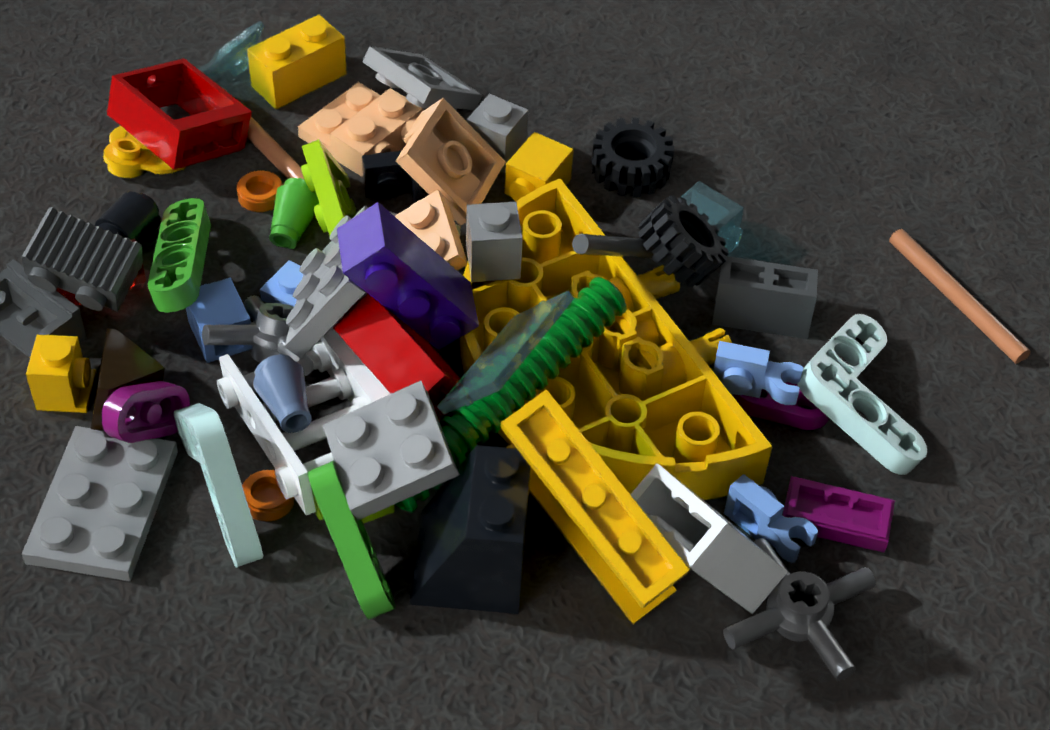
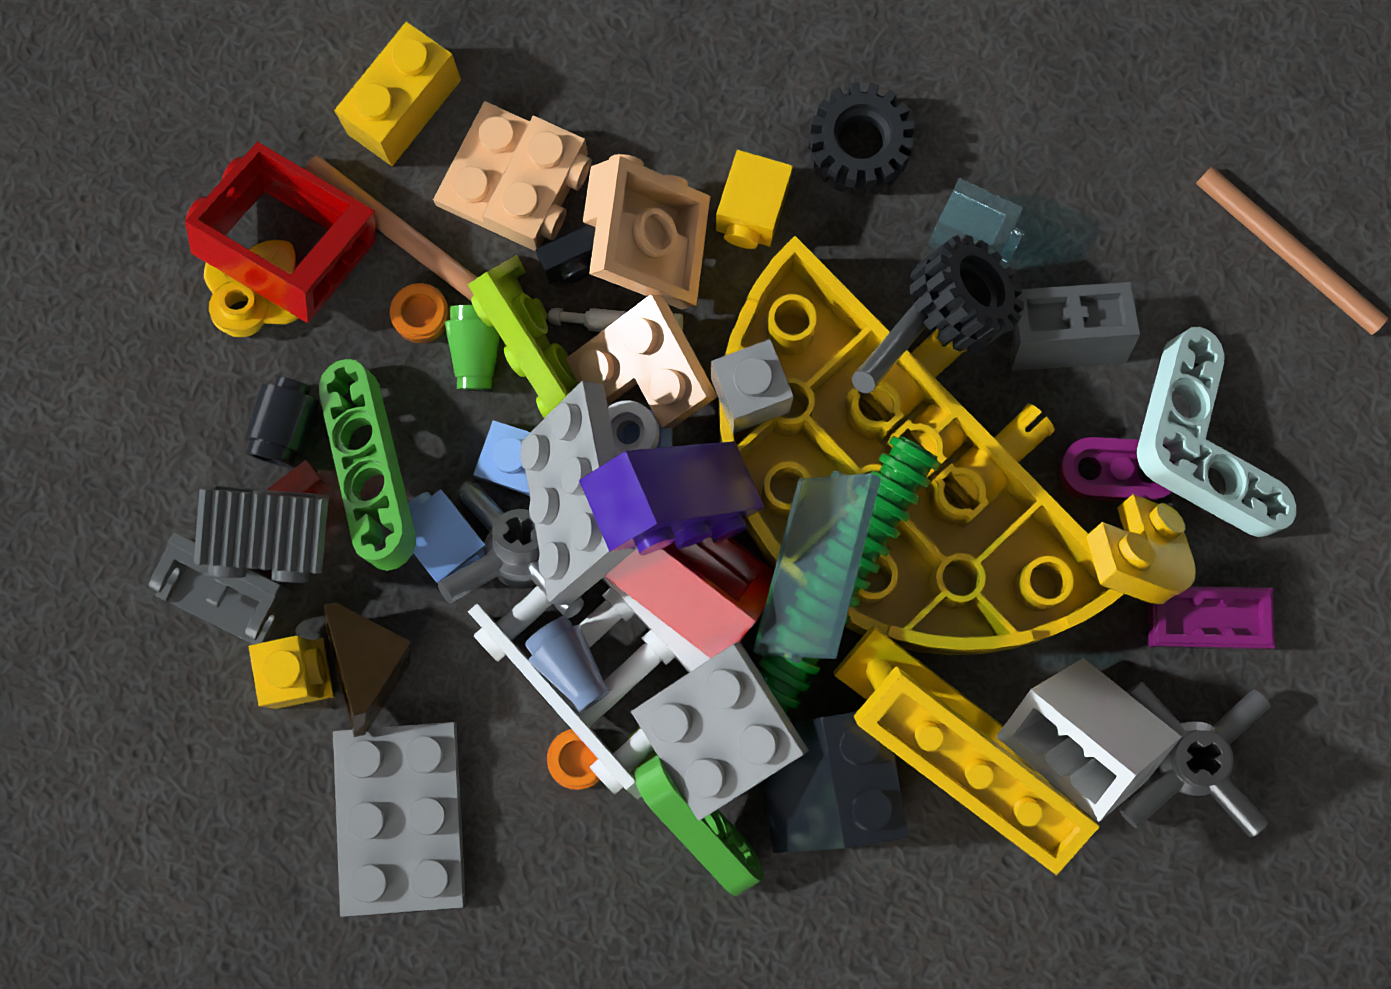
camera: 10 degrees left, 30 degrees up
(143, 411) = (409, 706): magenta plate -> none
(208, 444) = (515, 770): light aqua beam -> none
(234, 54) = (308, 101): clear light blue dish -> none
(420, 78) = (567, 87): light grey plate -> none
(501, 125) = (687, 147): light grey brick -> none
(748, 371) = (1078, 471): light blue plate -> none
(761, 516) = (1126, 643): light blue plate -> none
(784, 431) = (1148, 556): none -> yellow plate

